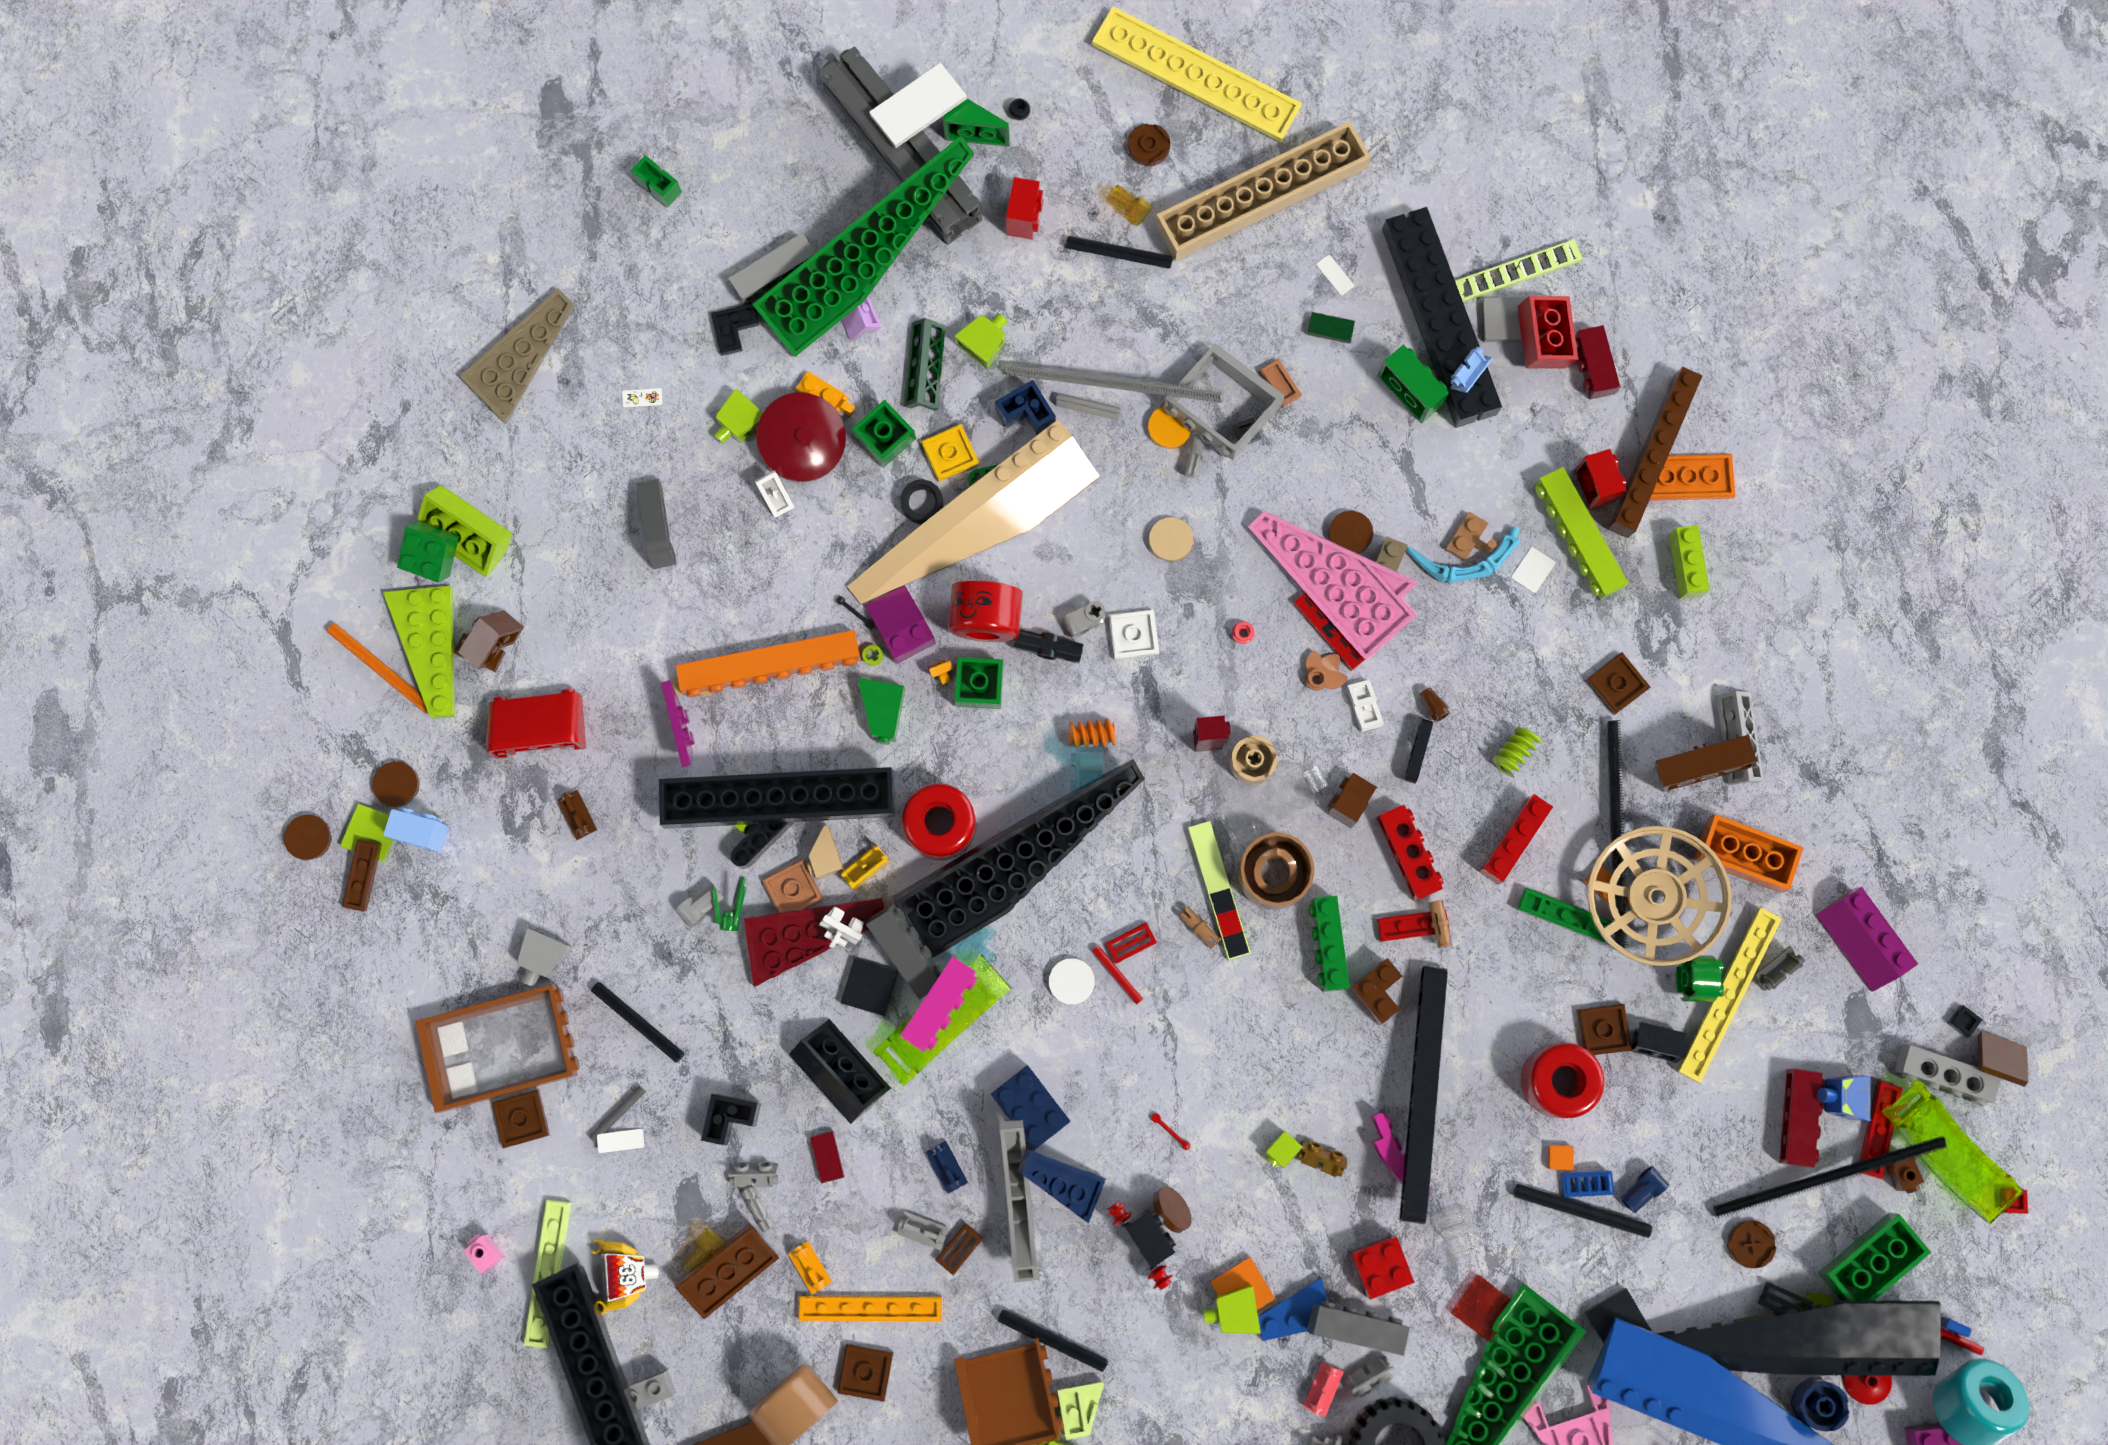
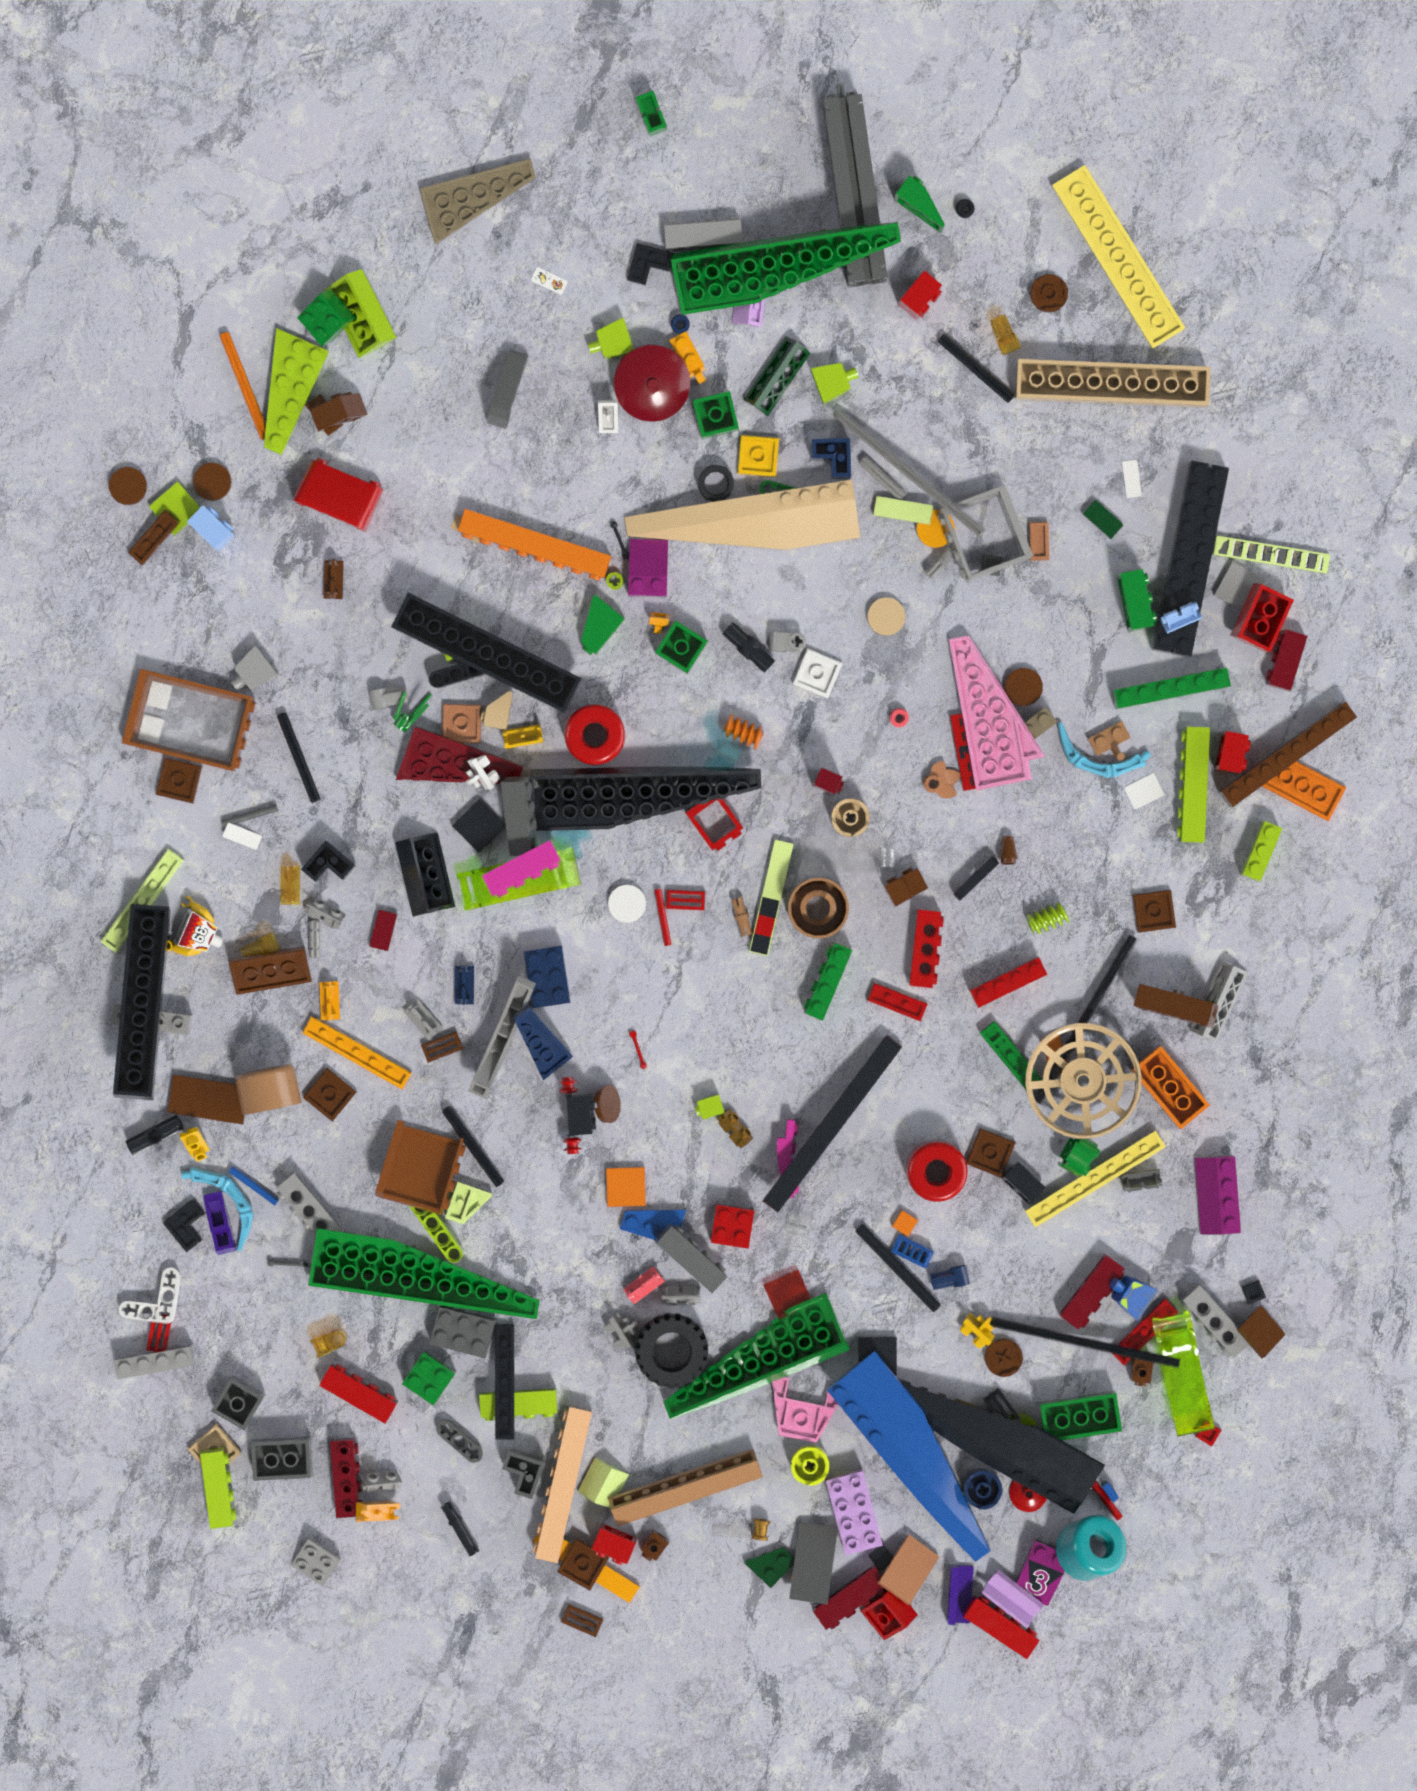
camera: 25 degrees right, 10 degrees up
(483, 1252) = (105, 861): bright pink brick -> none
(679, 719) = (446, 549): magenta wing -> none
(700, 1164) = (290, 885): none -> clear yellow hinge
(798, 361) = (677, 318): none -> dark blue plate
(918, 105) = (882, 173): white tile -> none
(985, 611) = (714, 598): red piece -> none
(1127, 425) = (903, 510): none -> yellowish green tile
(1134, 861) = (721, 842): none -> red window
(1235, 1312) = (611, 1198): lime torso -> none
(1365, 705) = (957, 822): white slope -> none
(1372, 991) = (838, 1031): reddish brown brick -> none
(1440, 923) = (916, 1012): medium nougat pin -> none
(1499, 451) = (1171, 688): none -> green brick
(1709, 1225) = (980, 1327): none -> yellow hips

